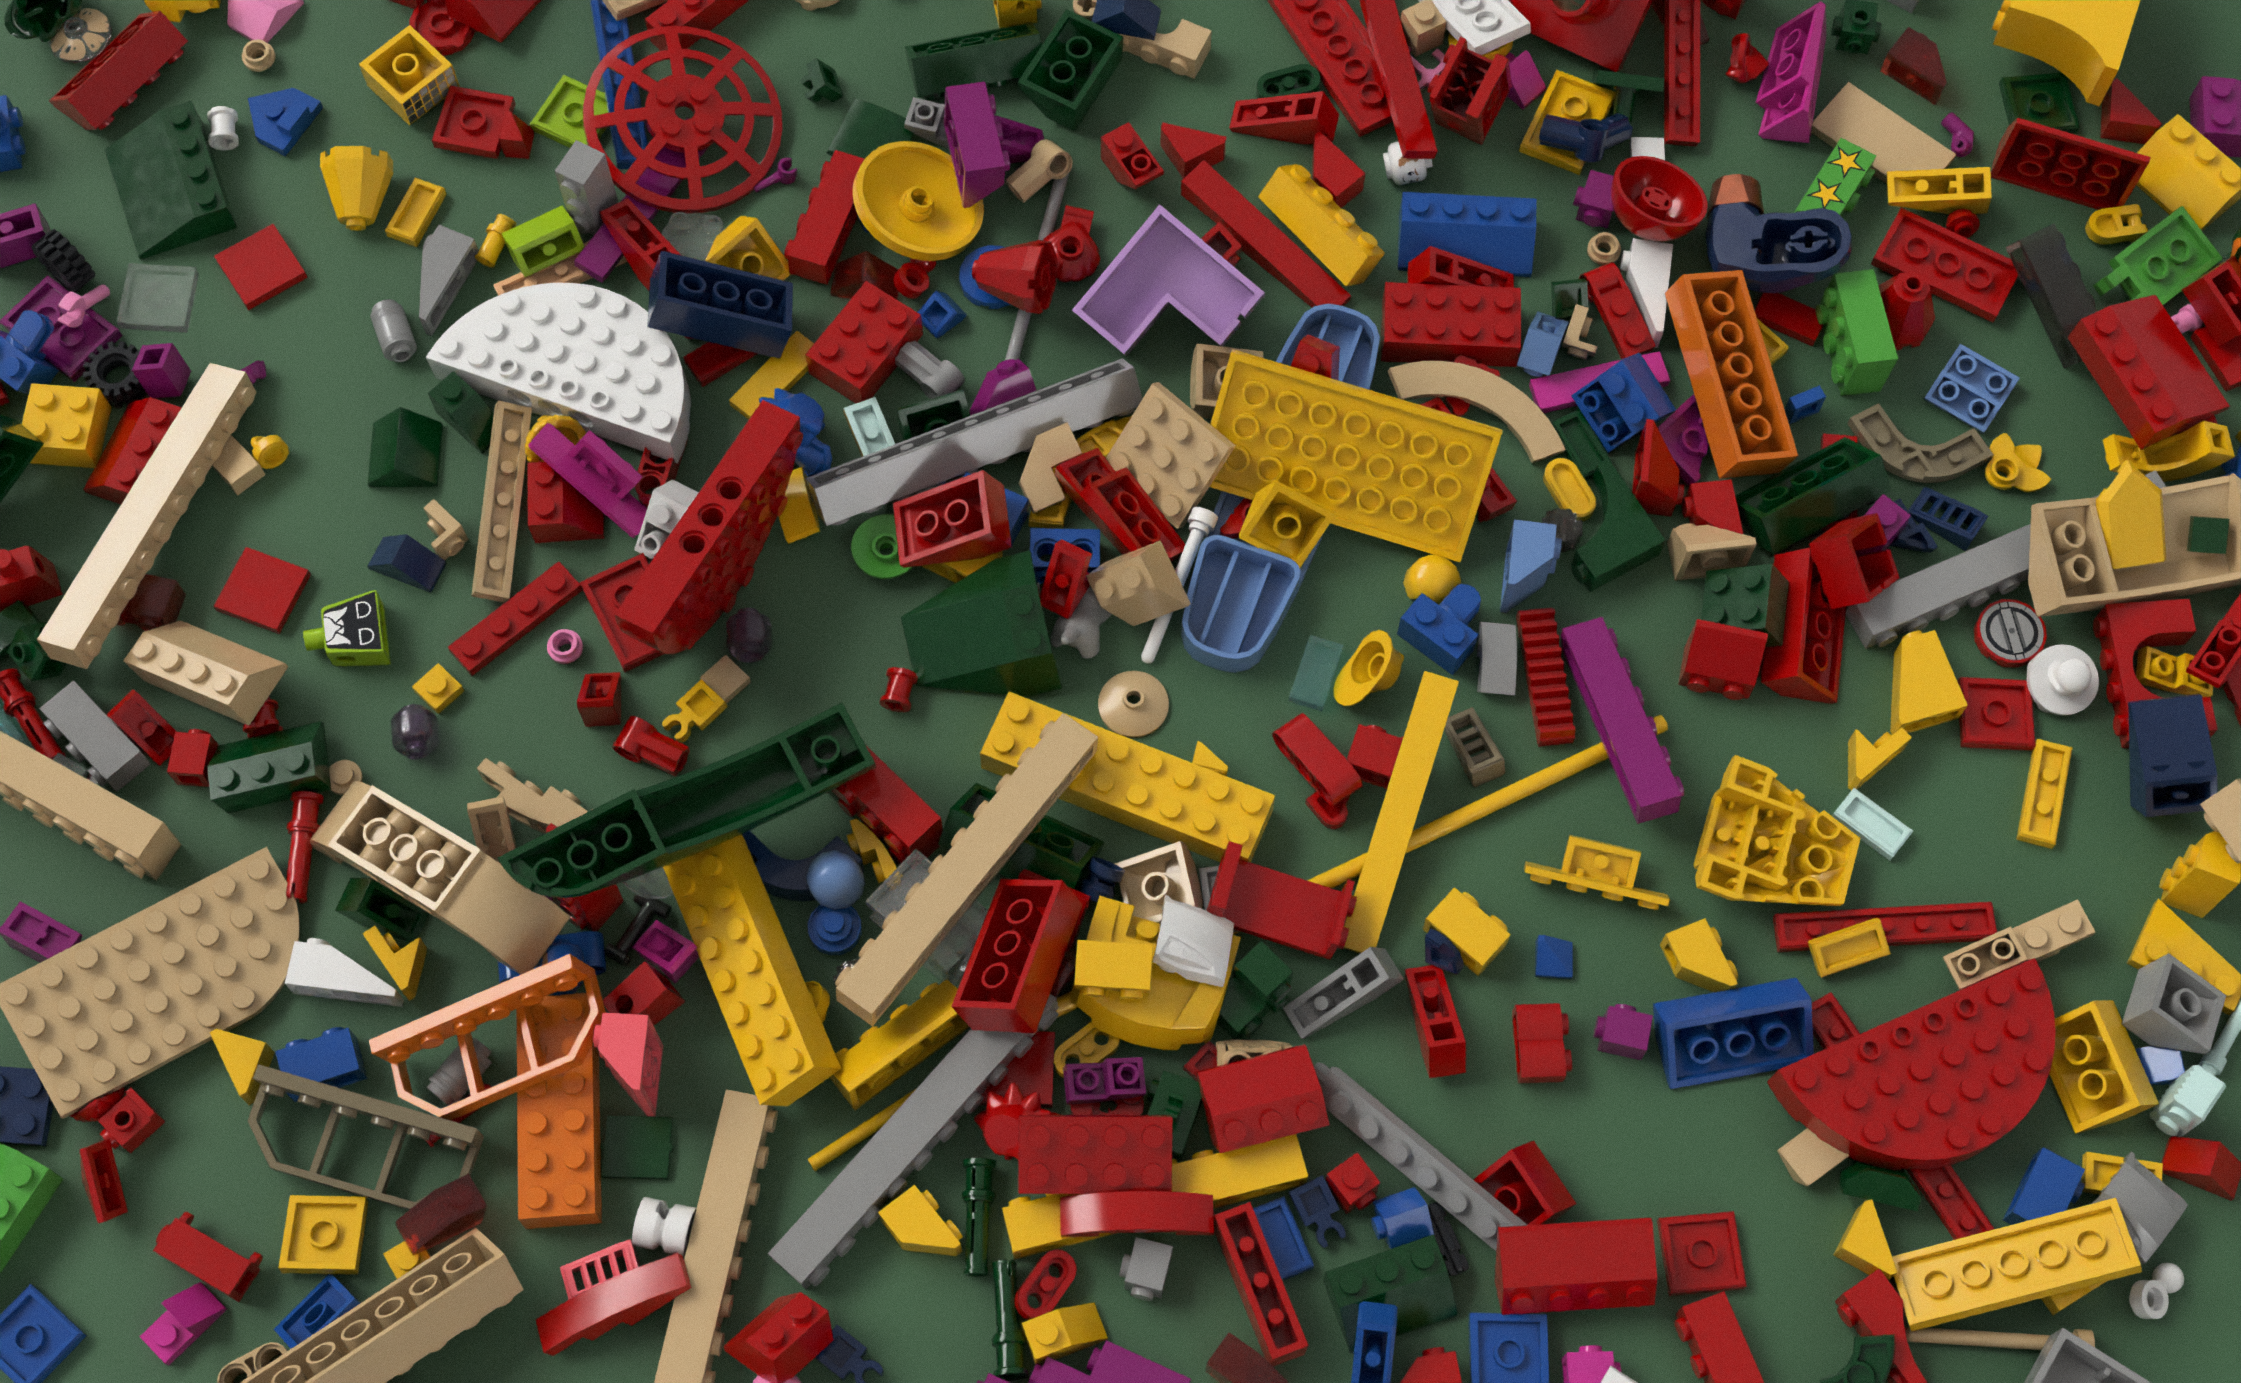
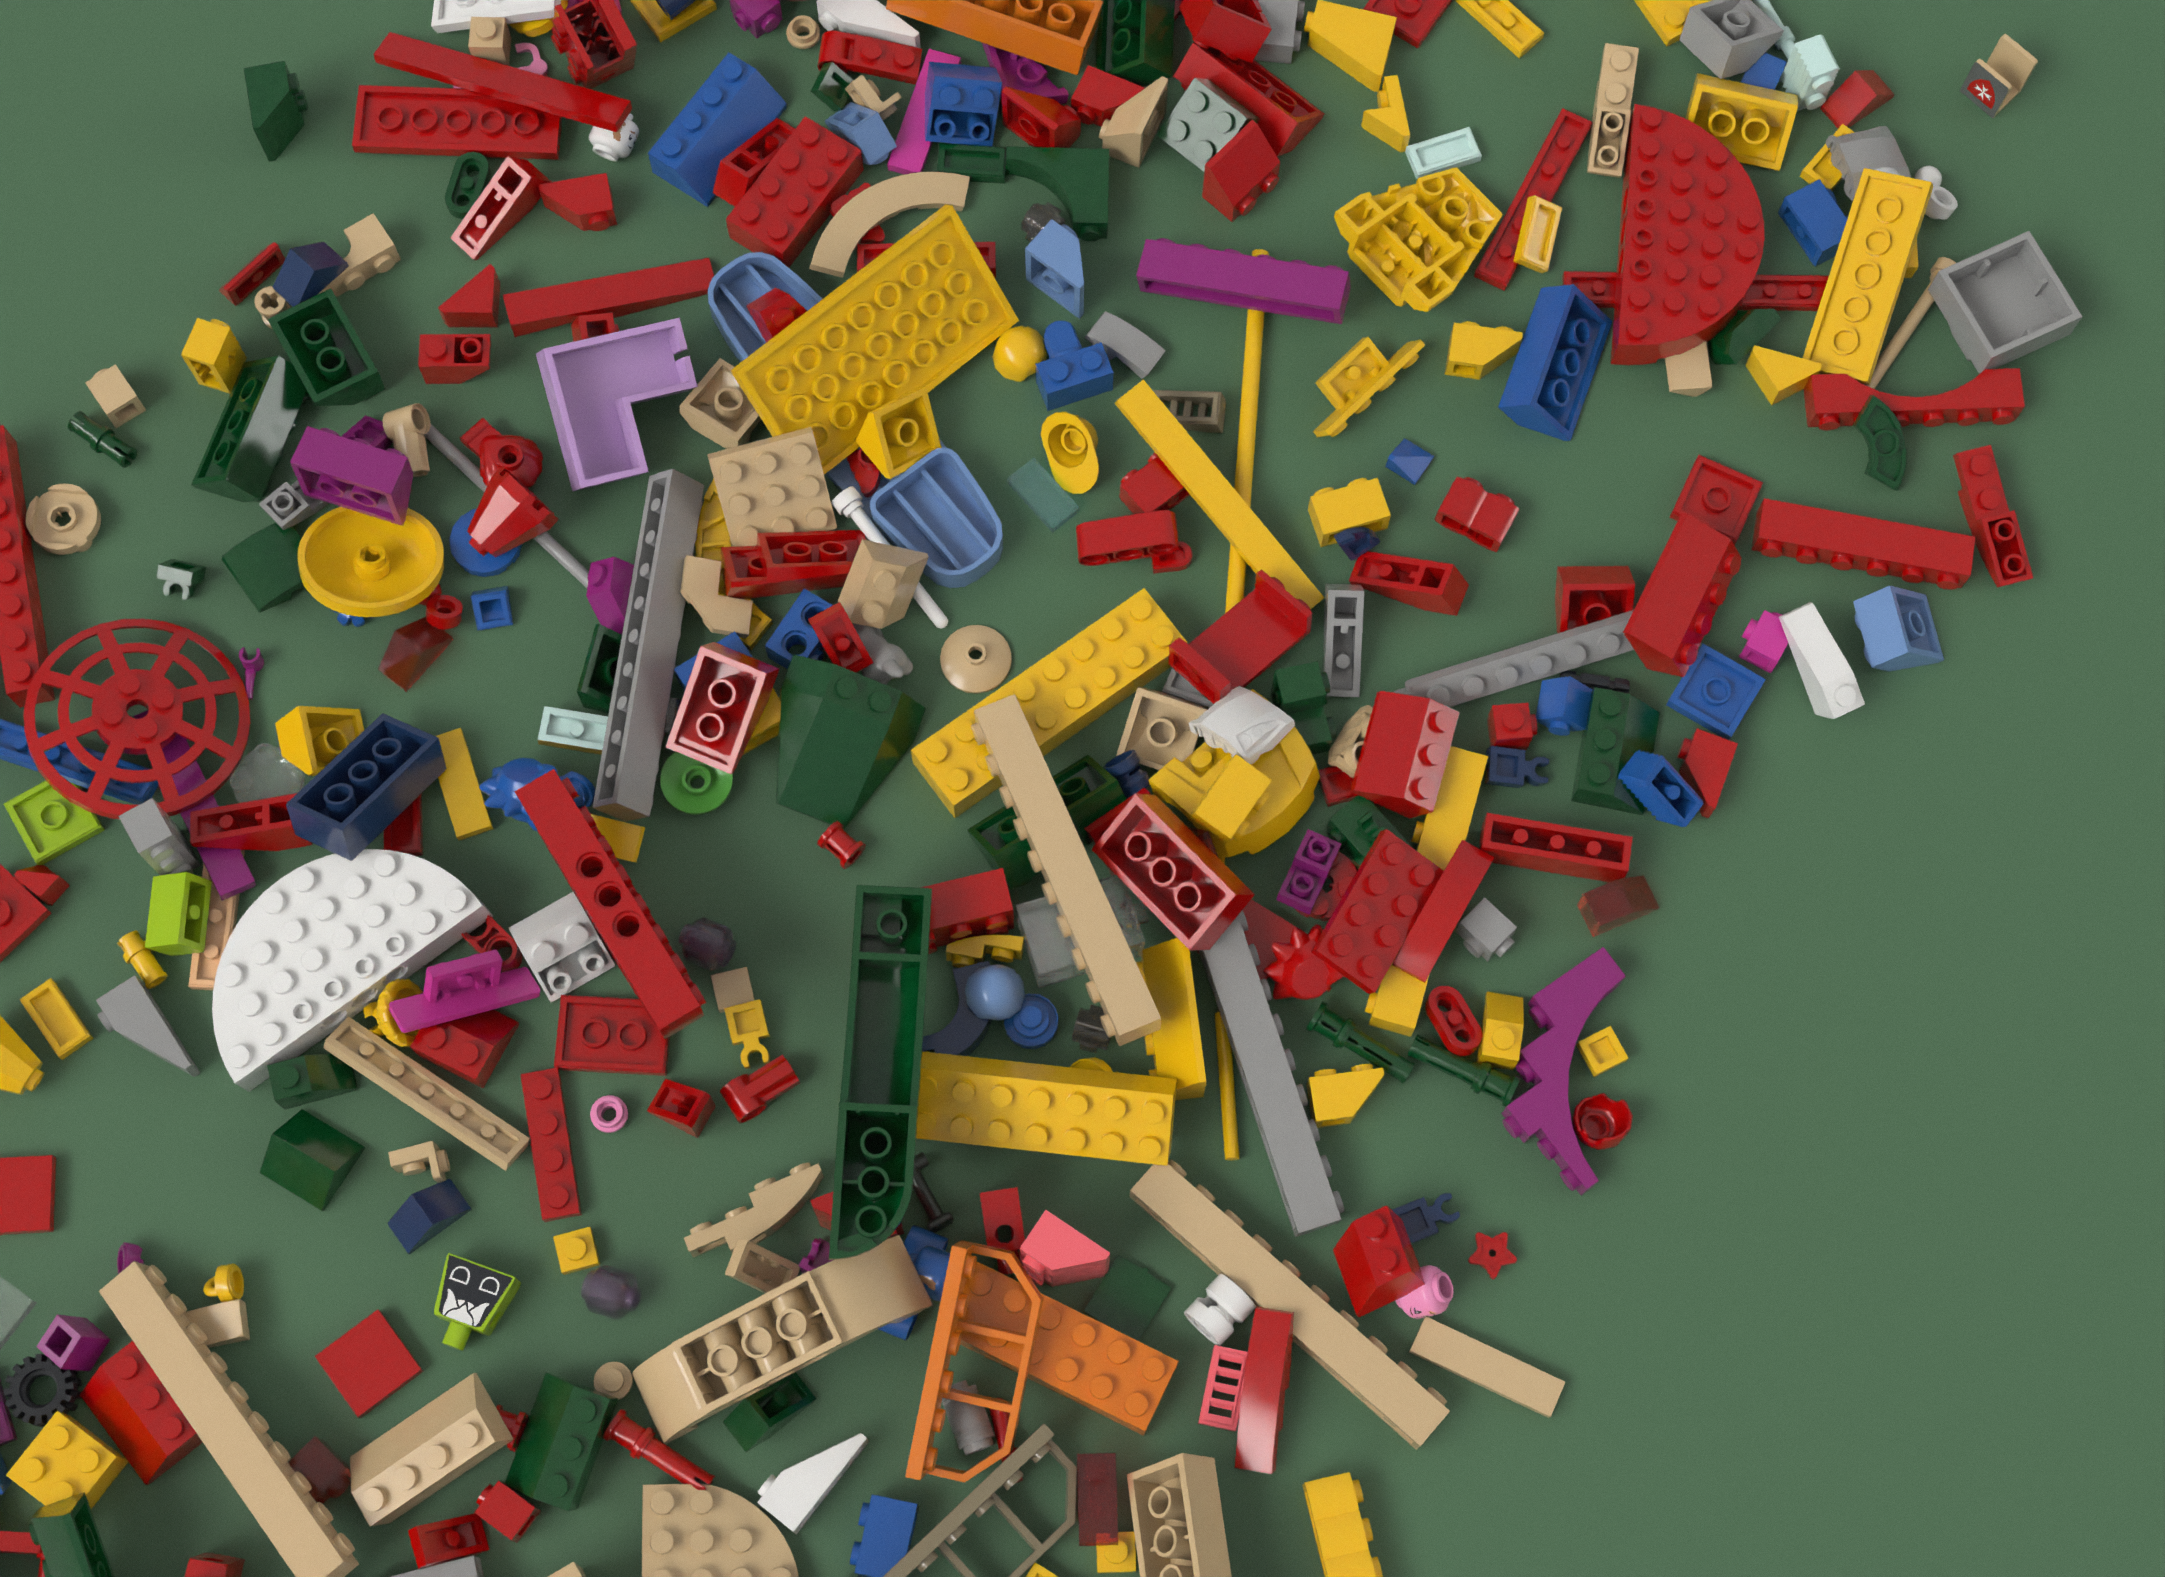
camera: 60 degrees left, 5 degrees up
(393, 331) = (176, 1103): light grey head -> none
(402, 964) = (838, 1421): yellow slope -> none
(667, 950) = (965, 1175): dark pink slope -> none
(827, 221) = (332, 646): red brick -> none
(862, 343) = (482, 687): red brick -> none
(934, 376) = (556, 645): light grey piece -> none
(1084, 1048) = (1267, 874): yellow plate -> none
(1207, 759) = (1070, 626): yellow slope -> none
(1283, 1238) = (1519, 805): blue tile -> none
(1321, 224) = (628, 237): yellow brick -> none
(1545, 677) = (1163, 317): red gear -> none
(1569, 488) = (1005, 196): yellow tile -> none
(1623, 1031) = (1506, 443): magenta brick -> none

